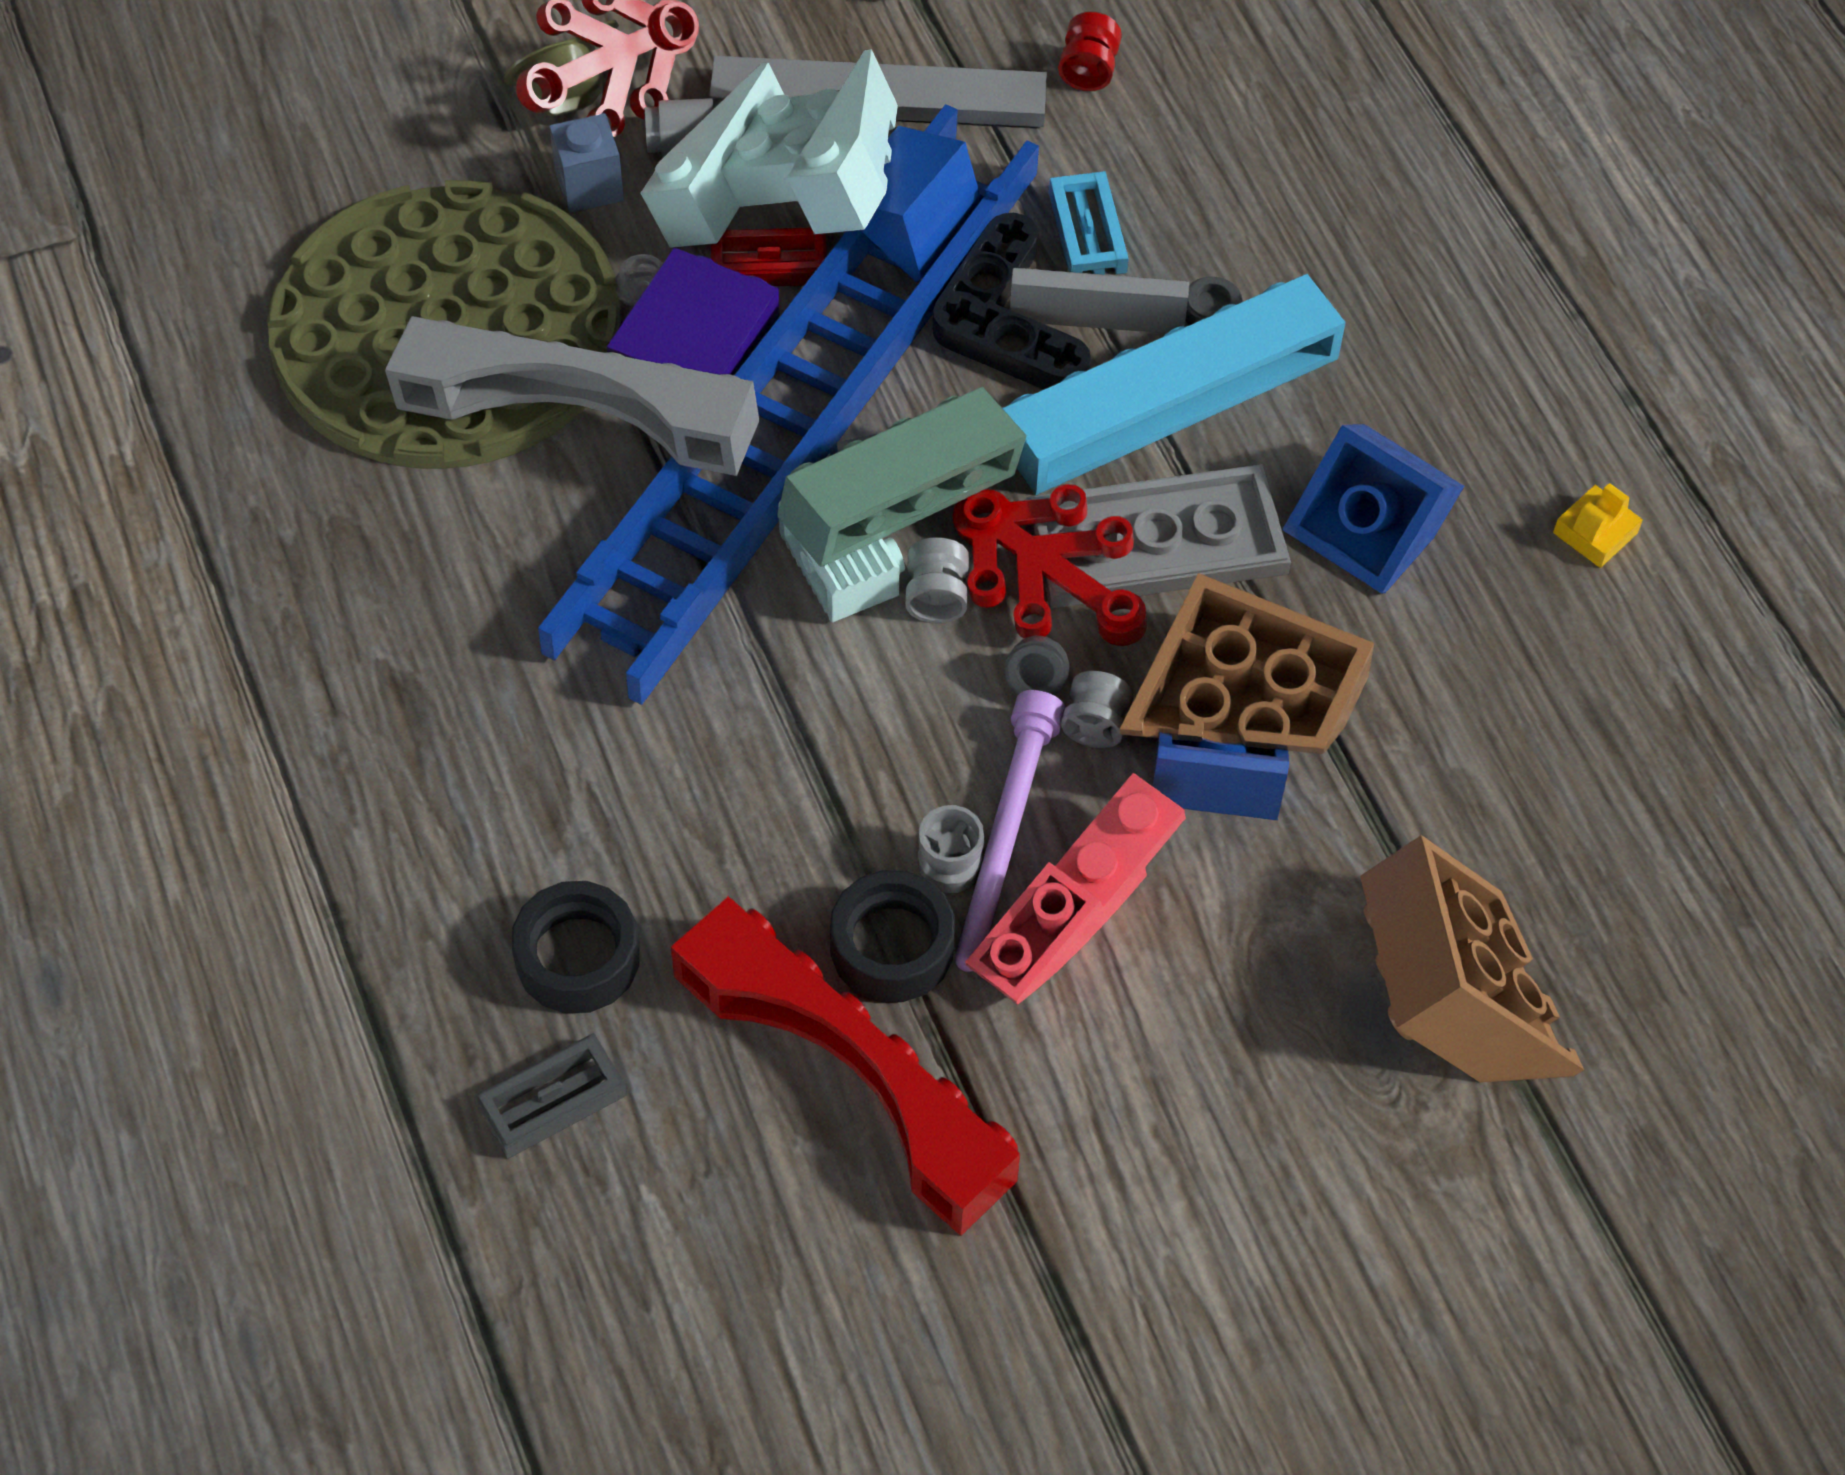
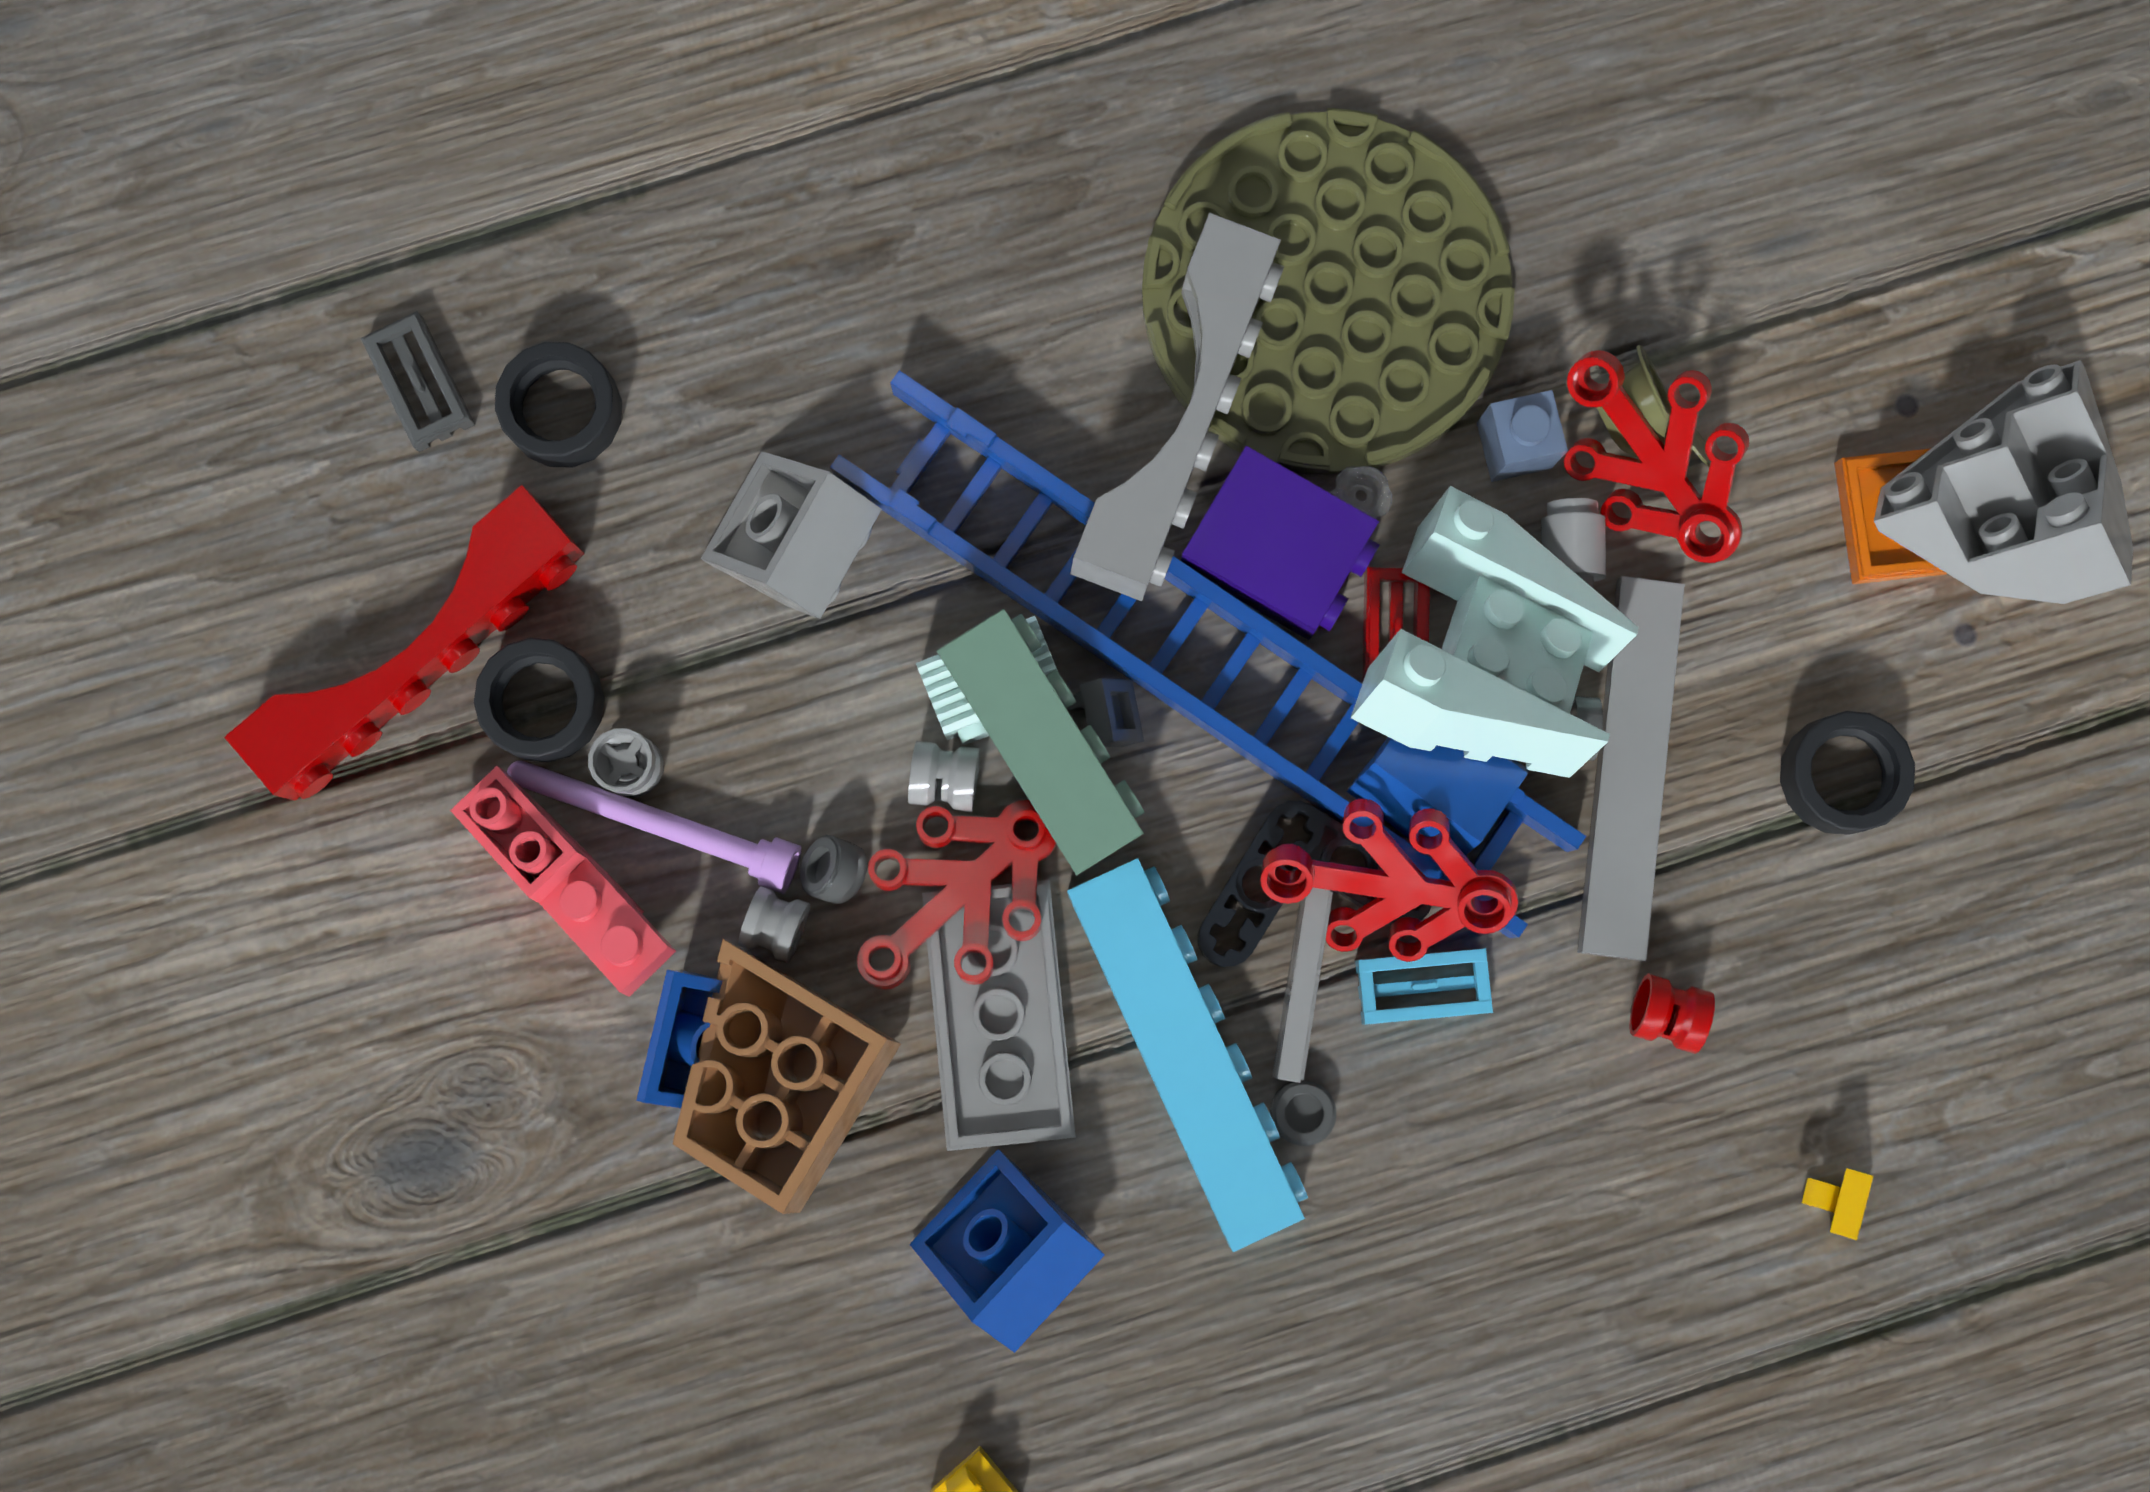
camera: 95 degrees right, 25 degrees up
(702, 725) = (792, 533): none -> light grey slope
(1015, 154) = (1397, 887): none -> red plant
(1459, 968) = (439, 1248): medium nougat wedge -> none

